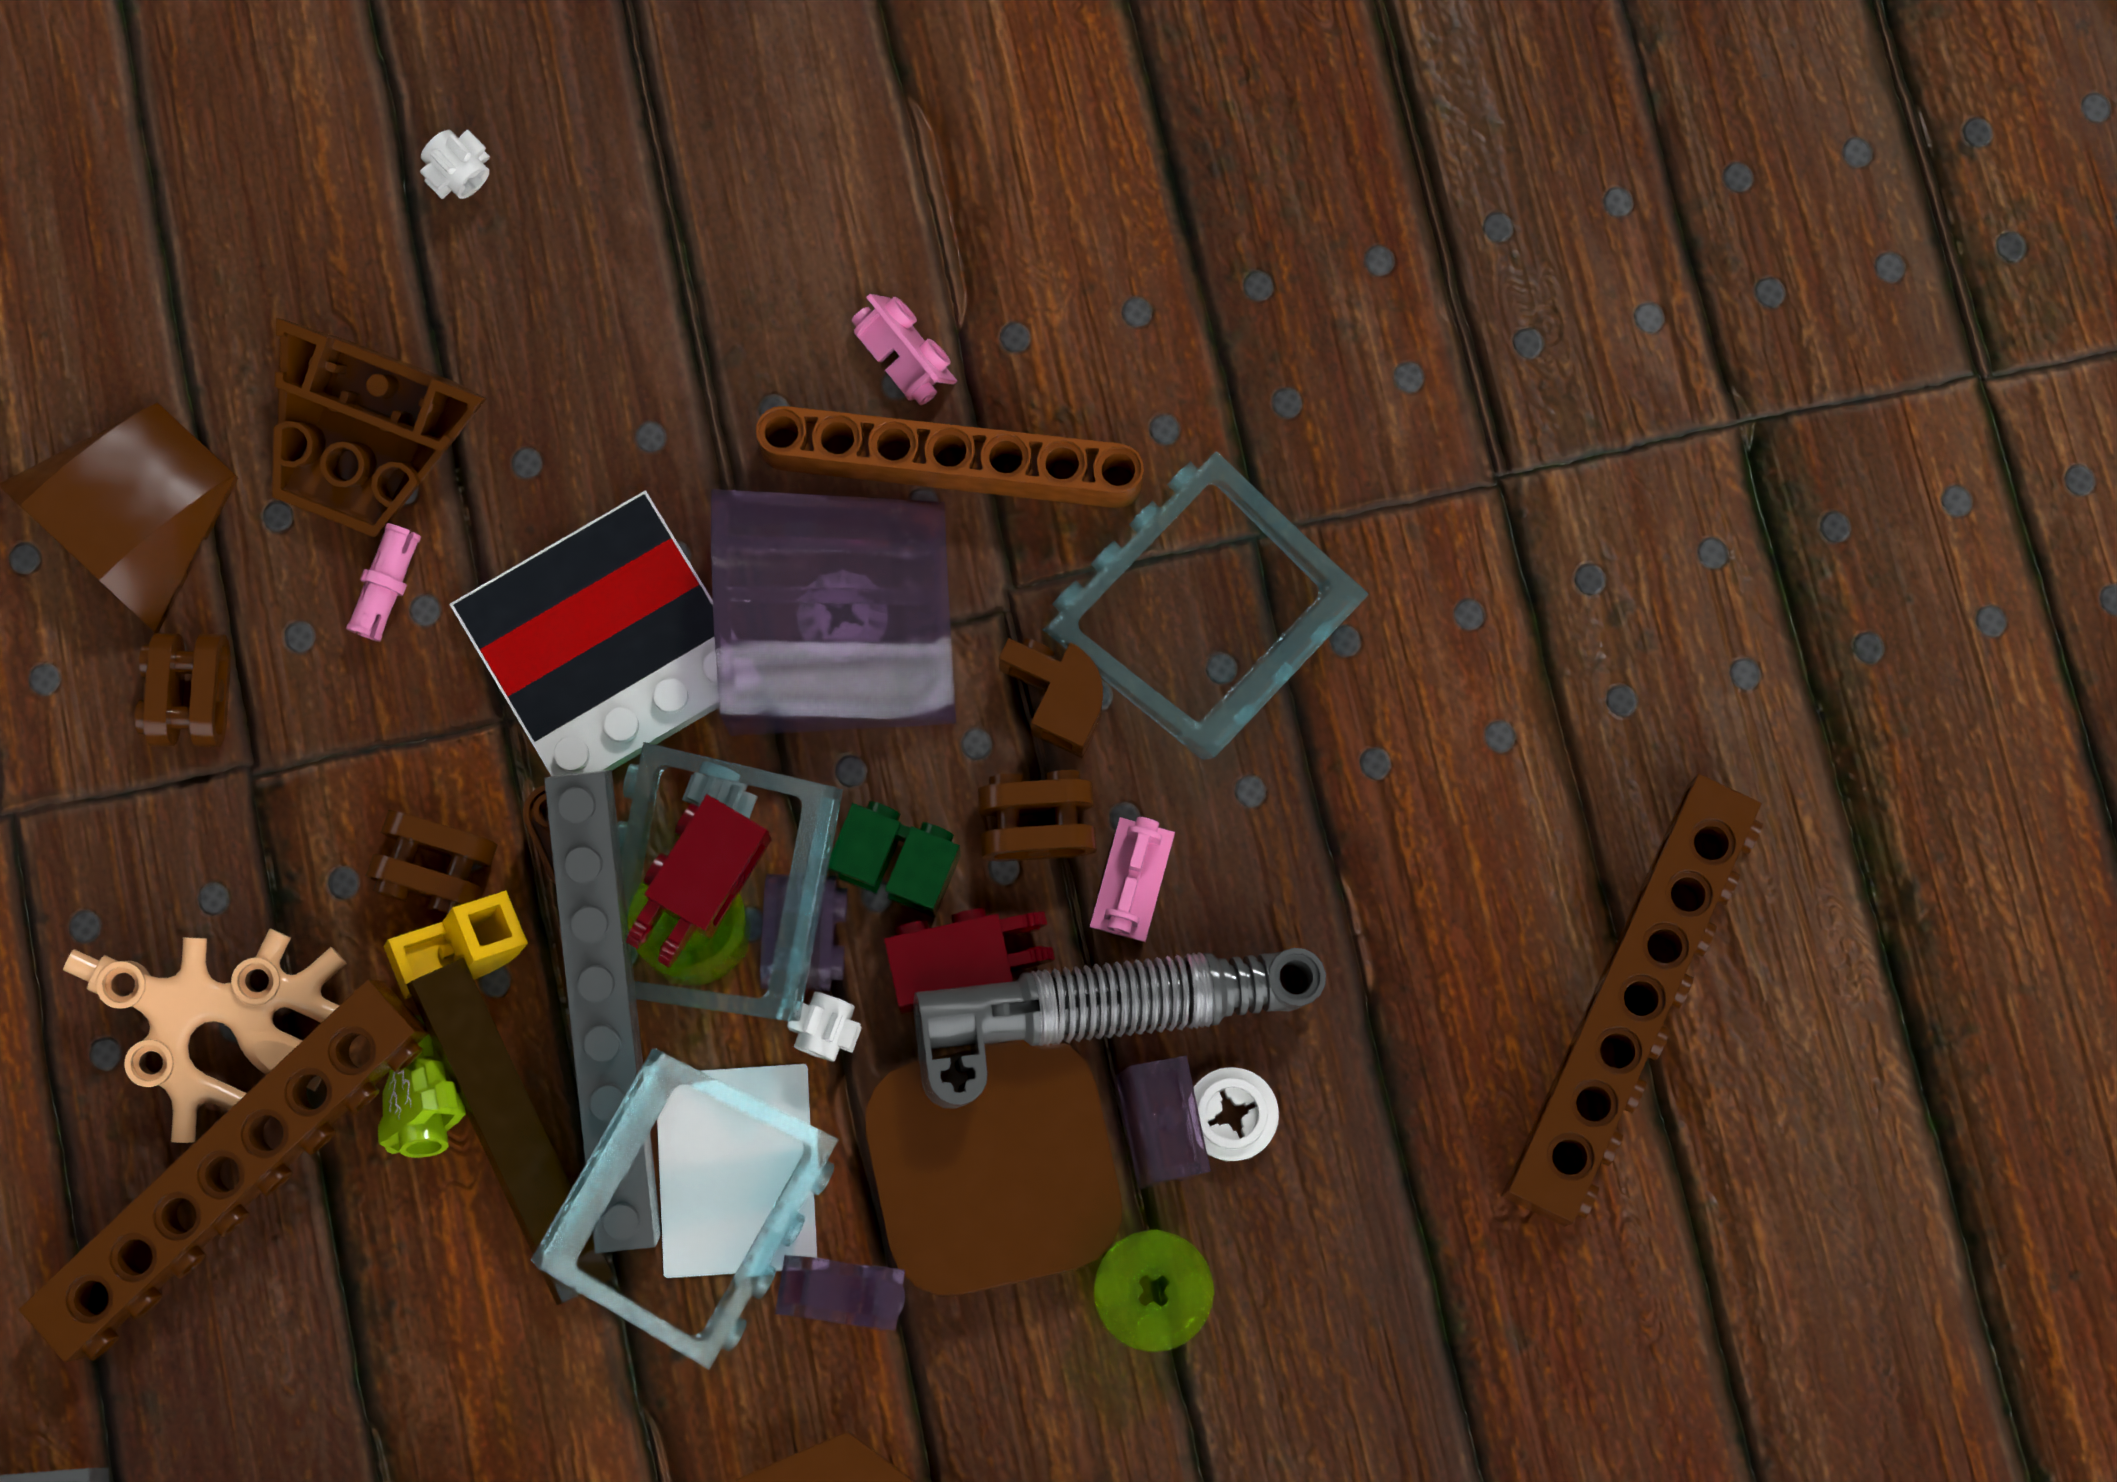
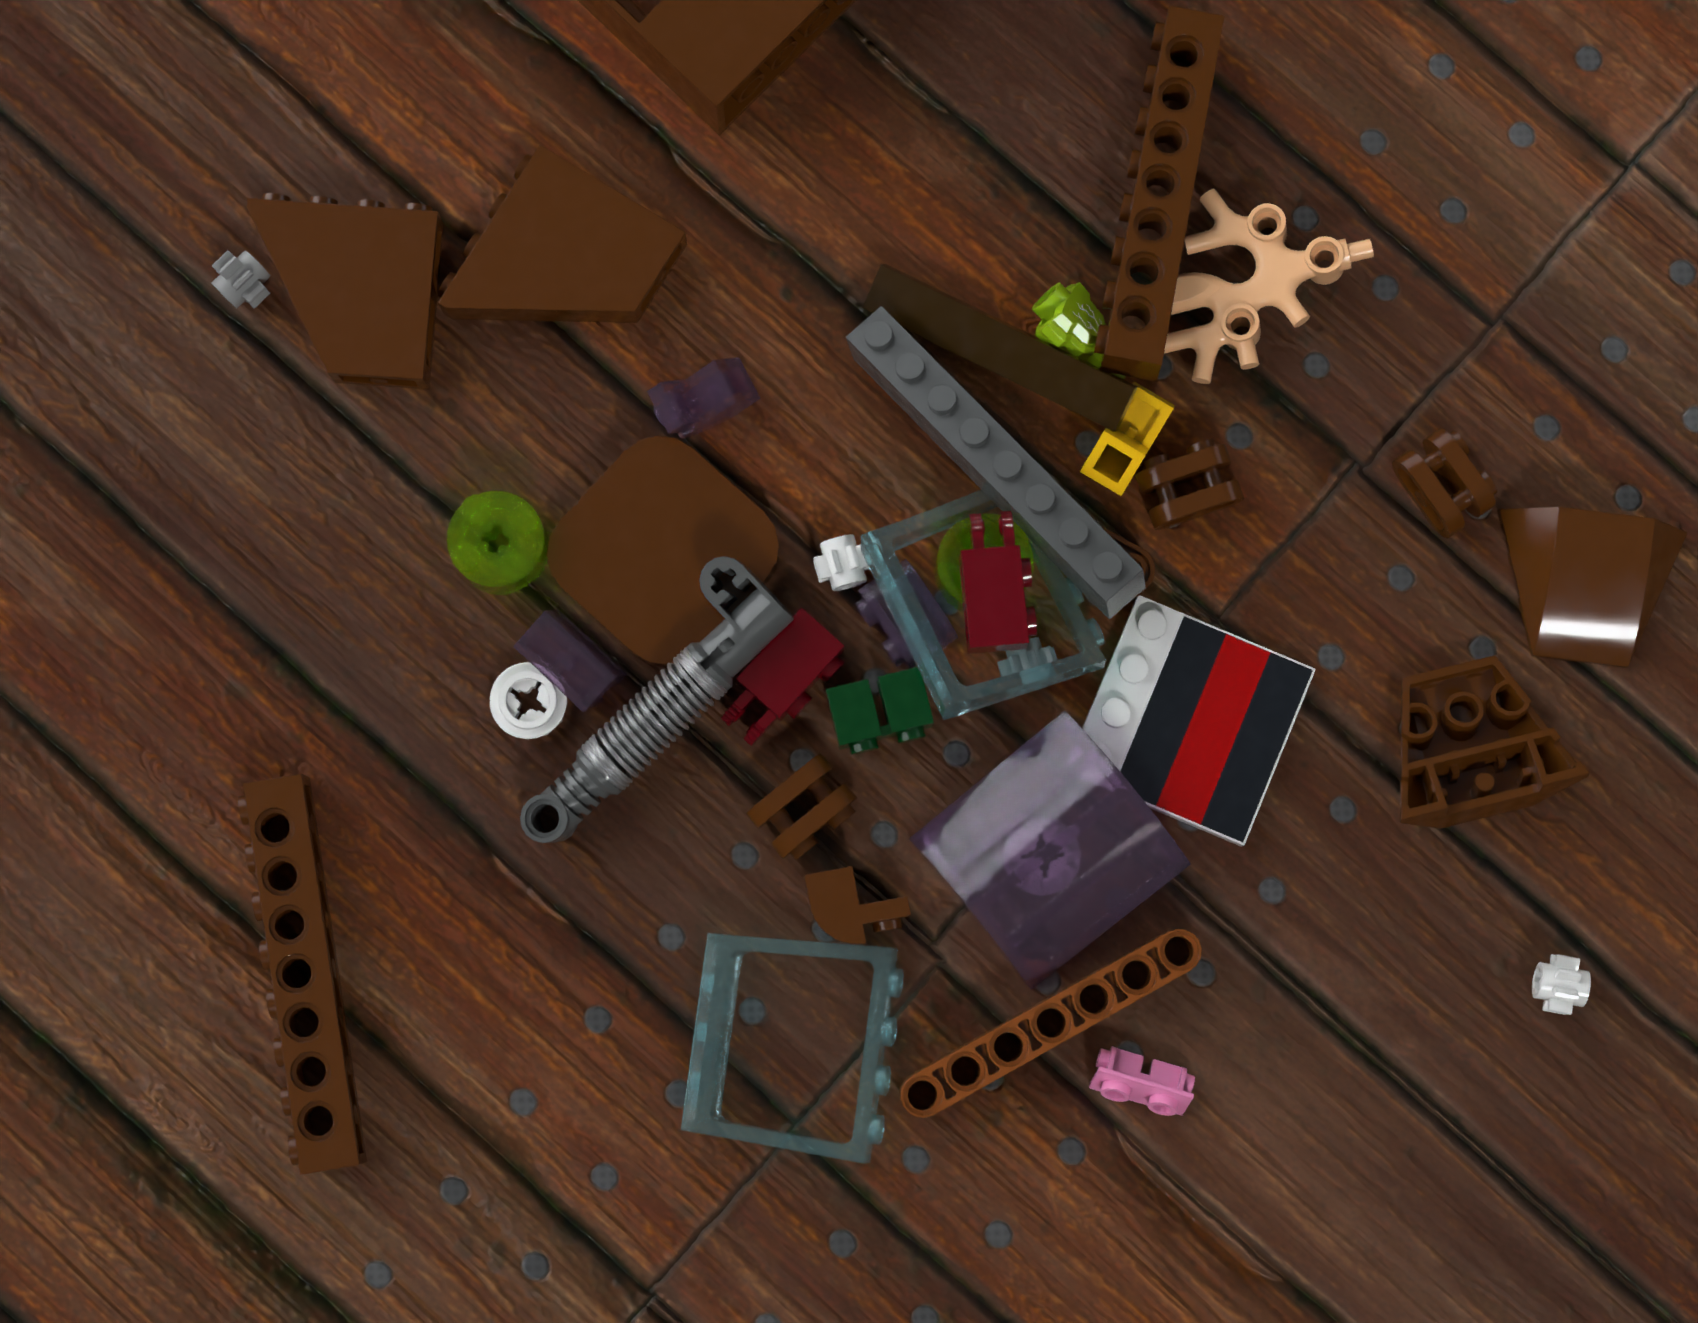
camera: 140 degrees right, 5 degrees up
(383, 582) = (1372, 651): bright pink pin -> none
(608, 1166) = (910, 369): clear light blue windscreen -> none
(728, 1171) = (836, 434): white sticker -> none
(1132, 878) = (708, 813): bright pink hinge -> none

